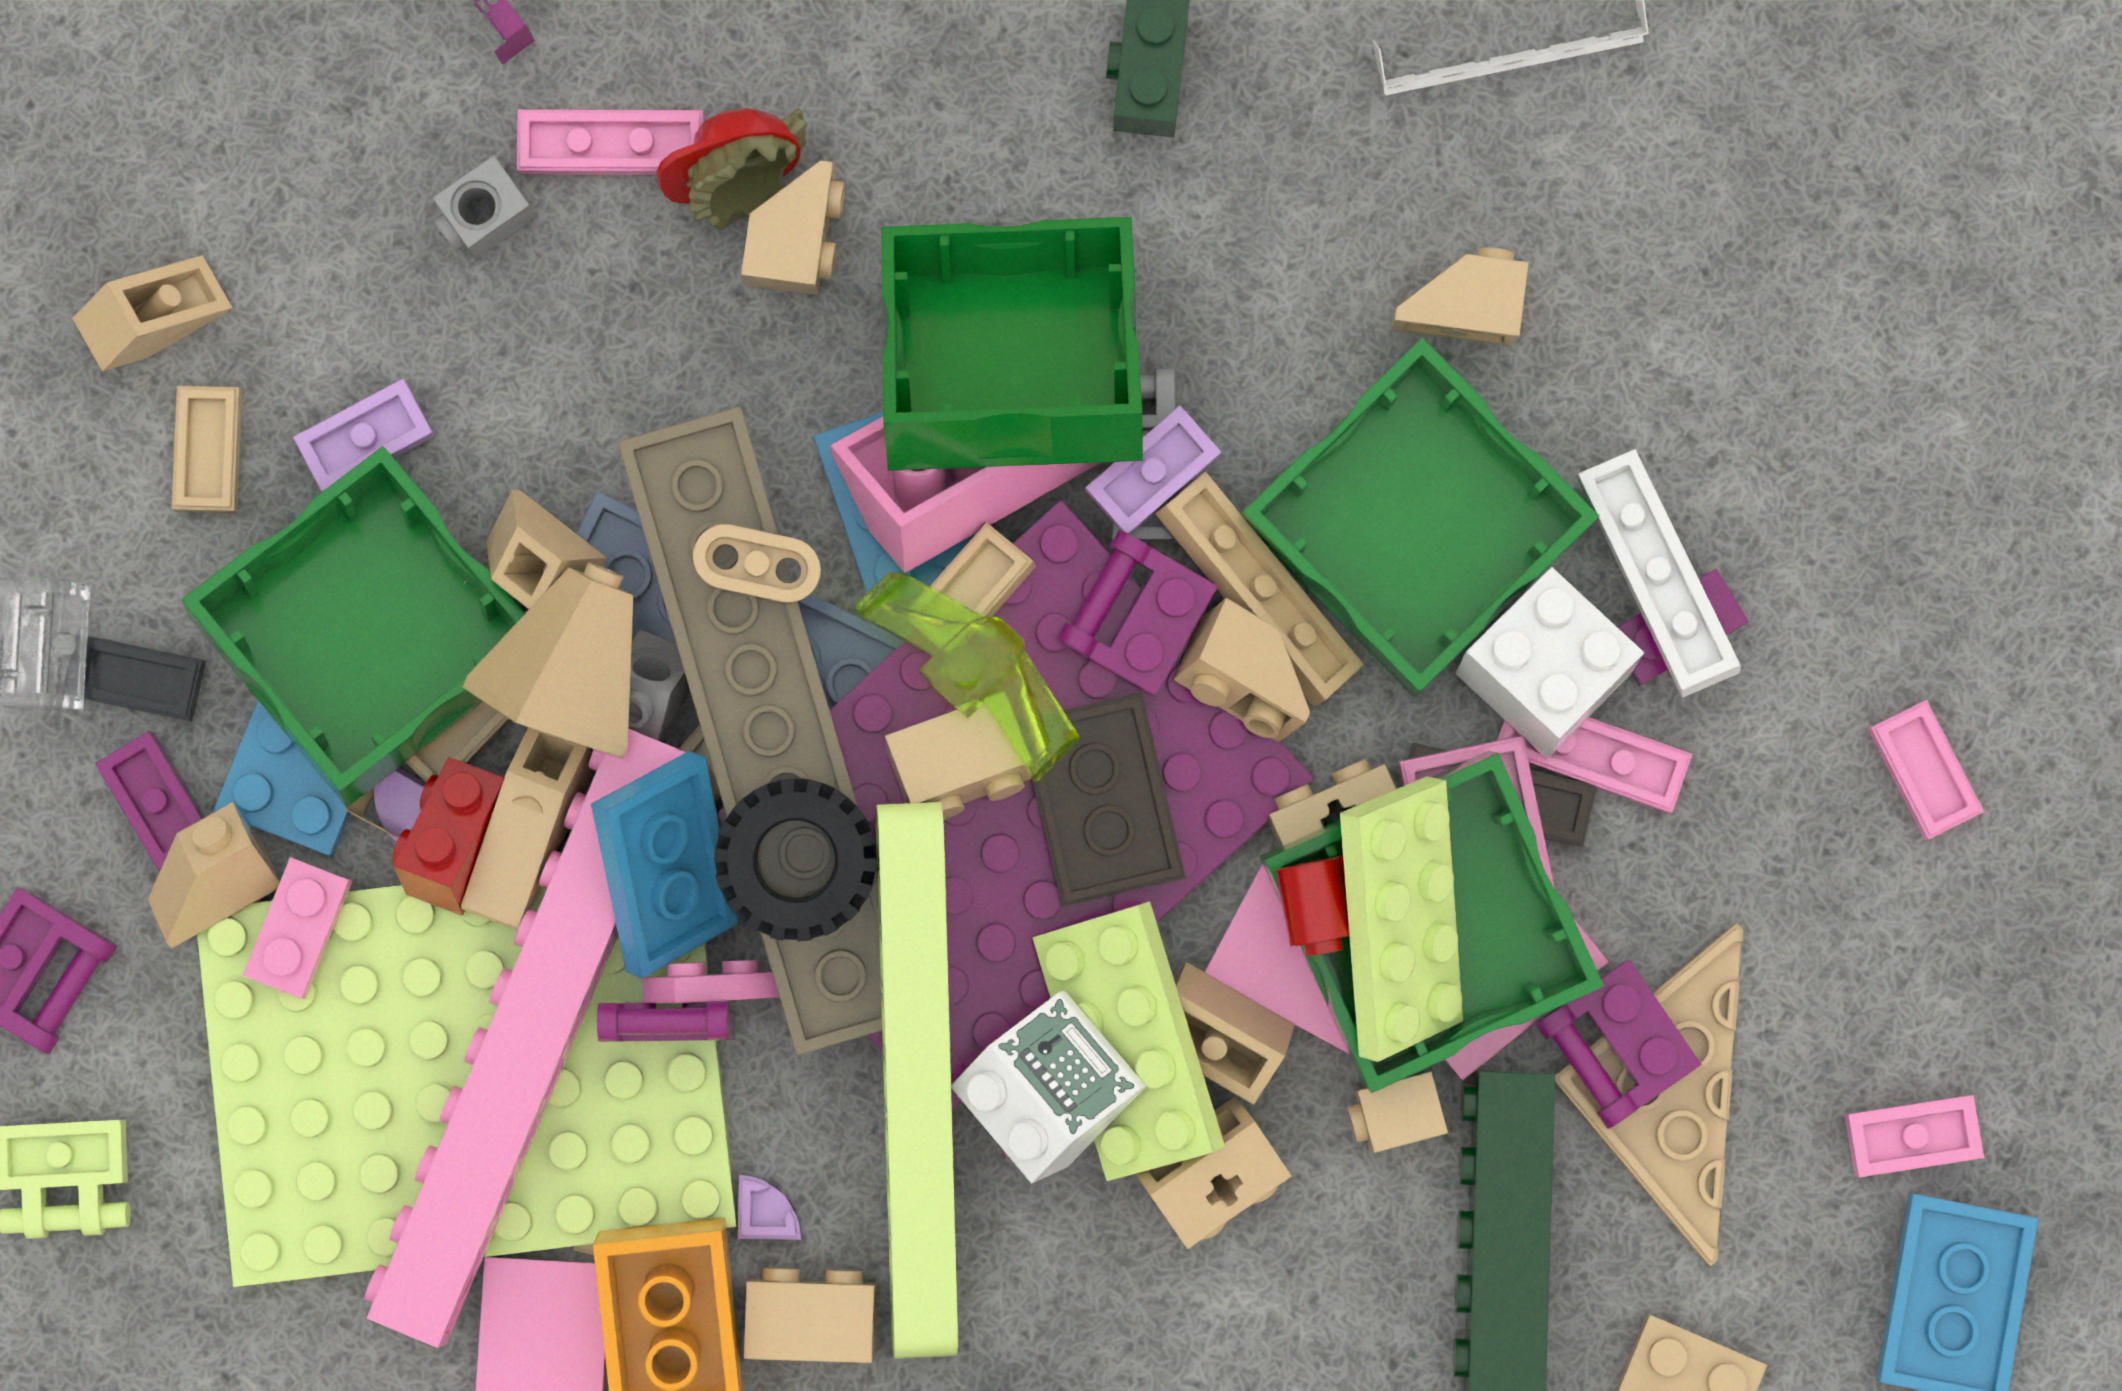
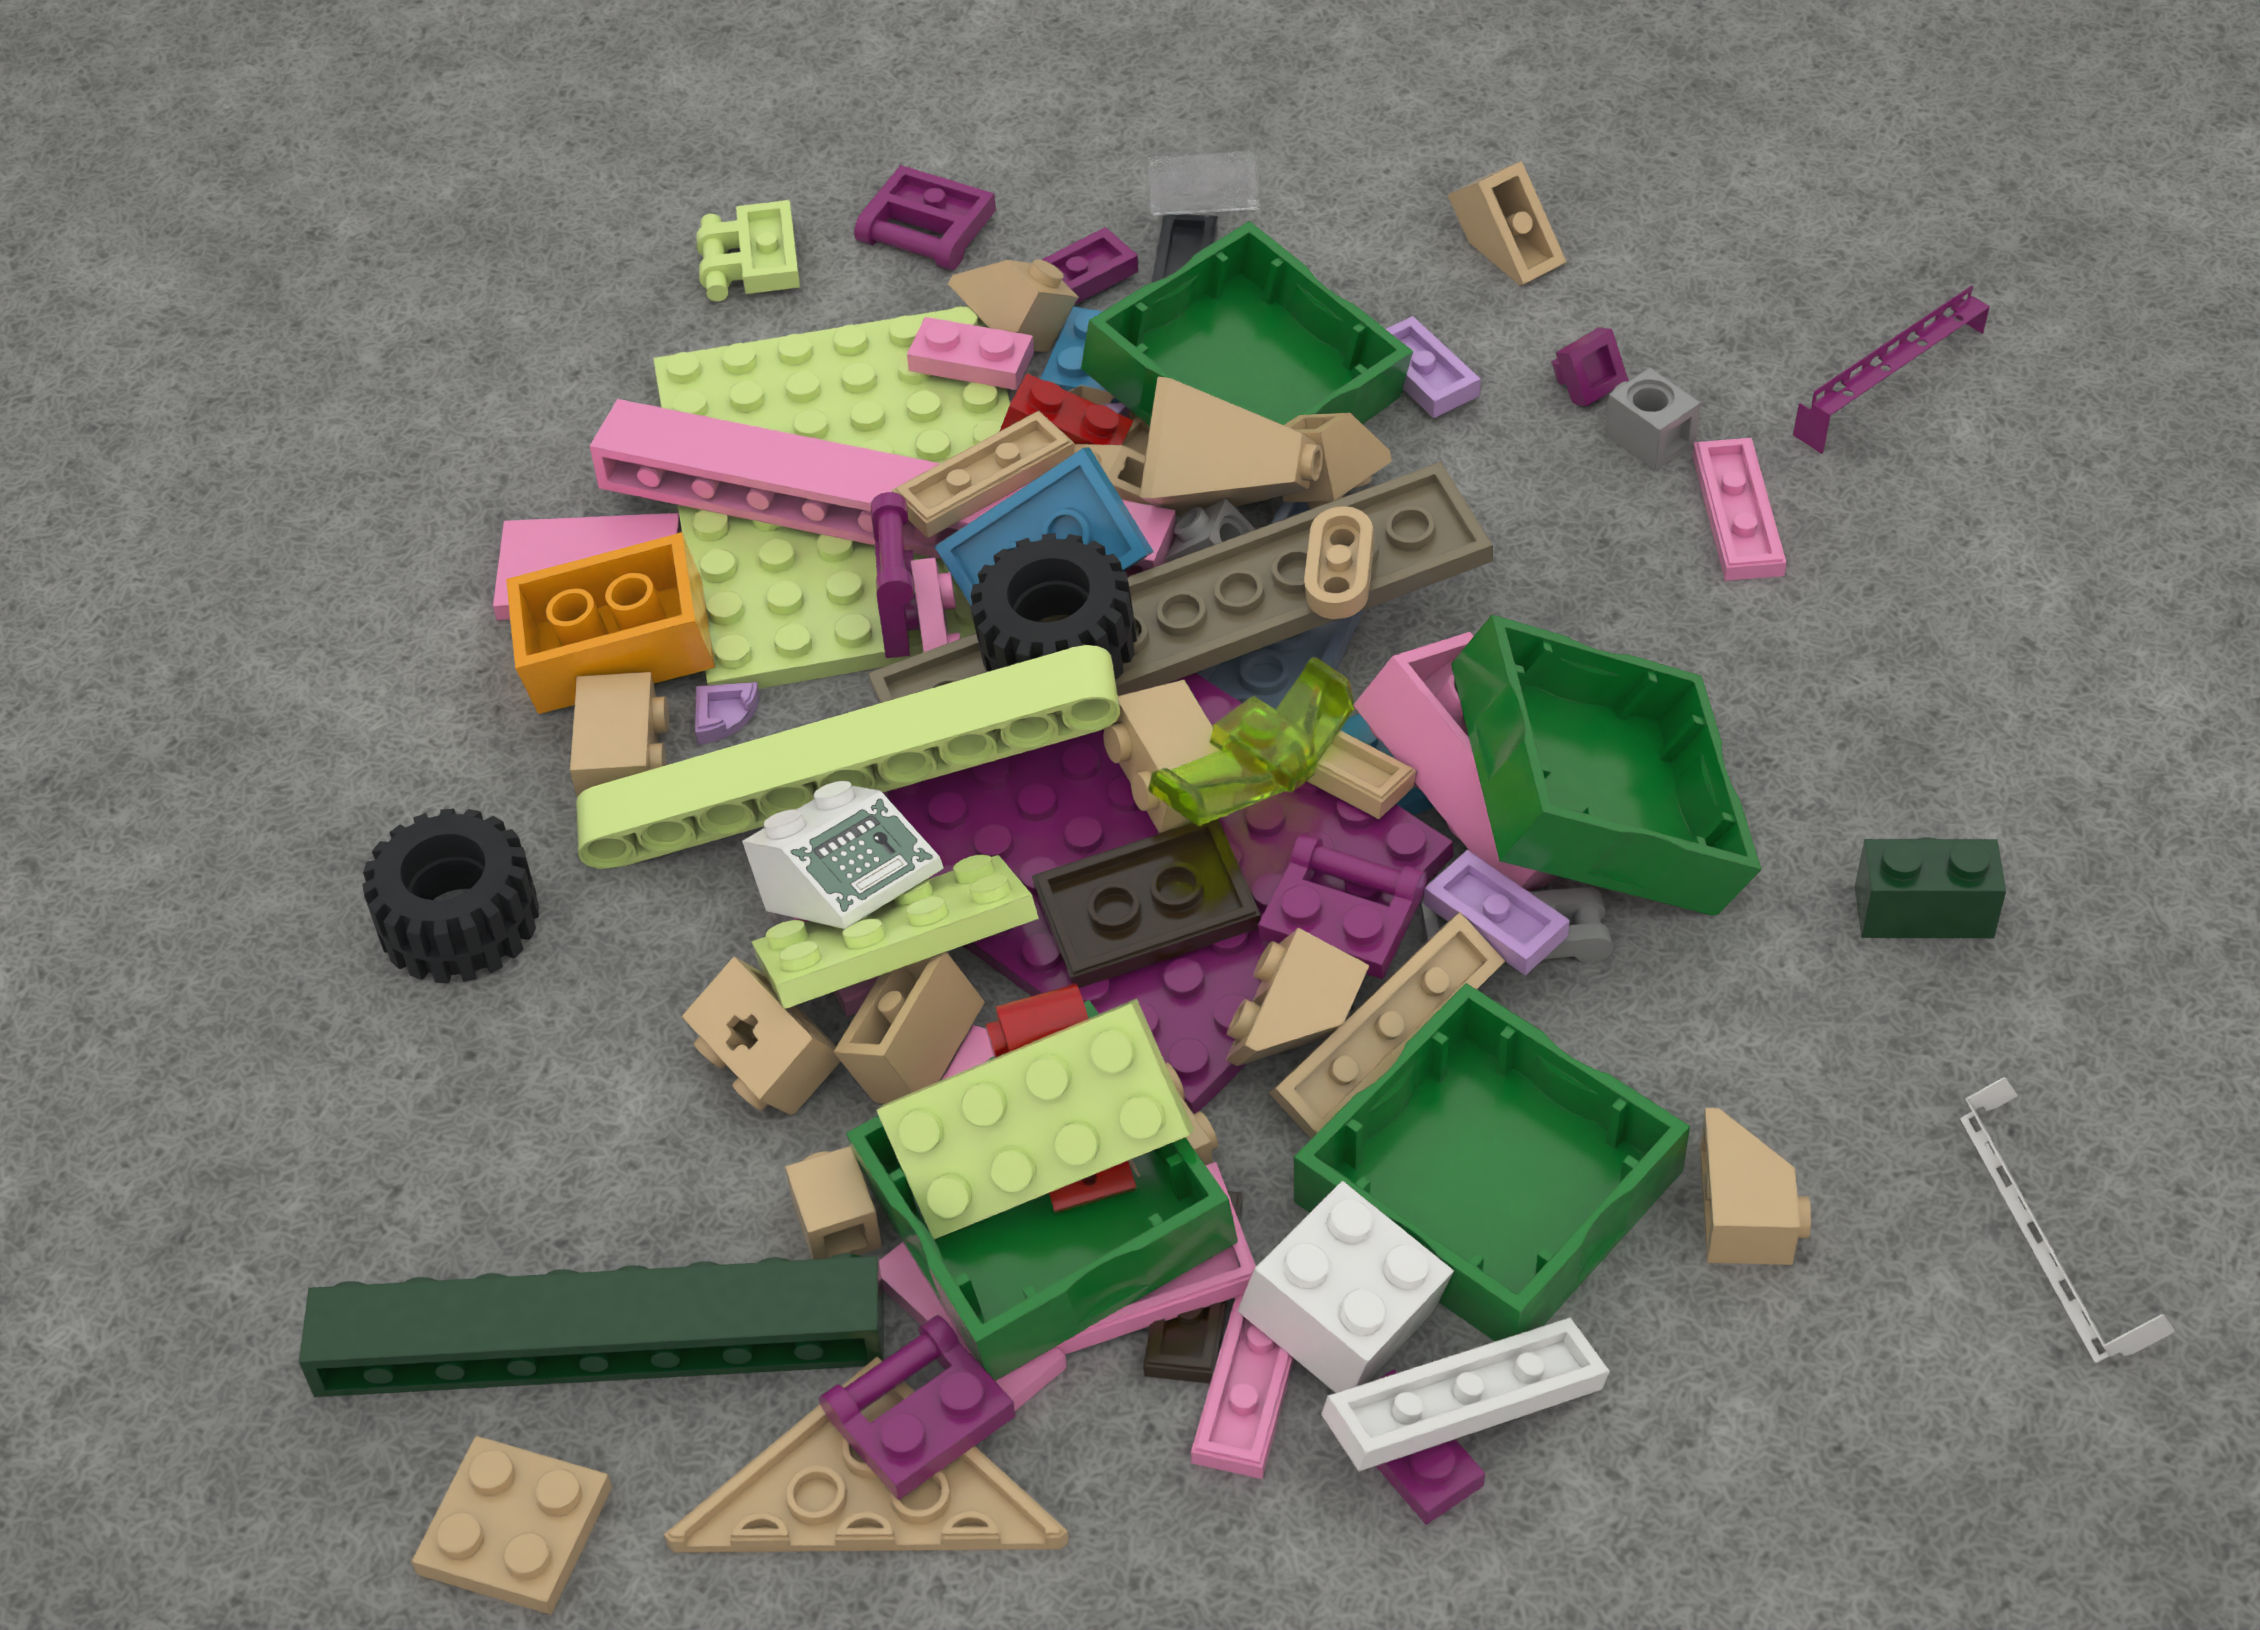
camera: 85 degrees right, 35 degrees down
(207, 449) = (1394, 278): tan tile -> none
(394, 258) = (1590, 366): none -> magenta tile
(546, 920) = (984, 473): none -> tan tile
(733, 164) = (1736, 575): olive hair -> none
(789, 234) = (1687, 629): tan slope -> none

